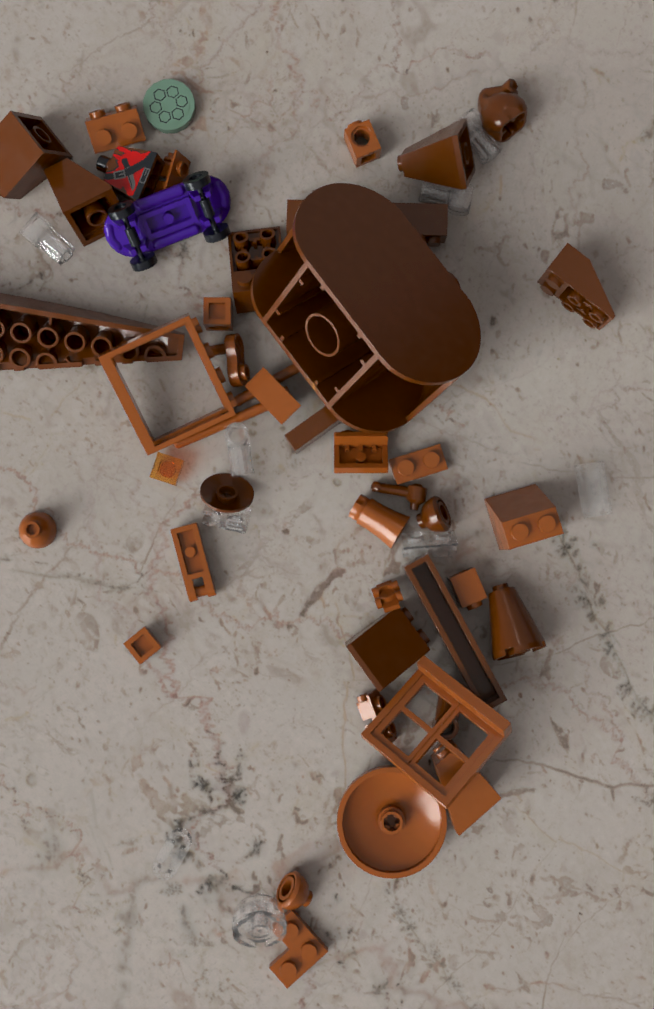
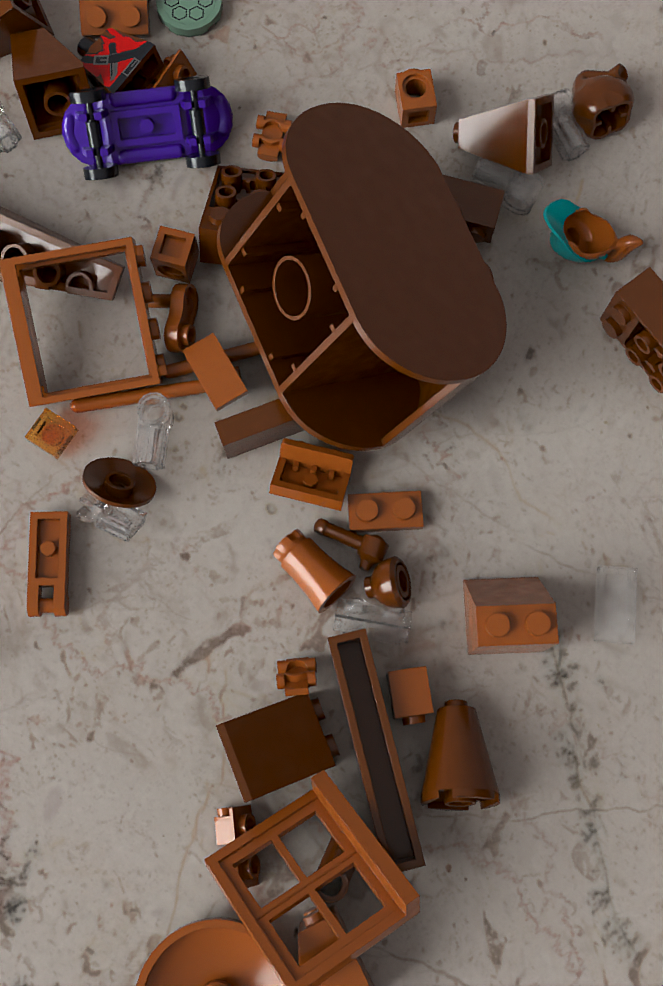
camera: 15 degrees right, 10 degrees down
(262, 204) = (271, 140): none -> dark orange piece
(514, 223) = (585, 236): none -> dark orange hair

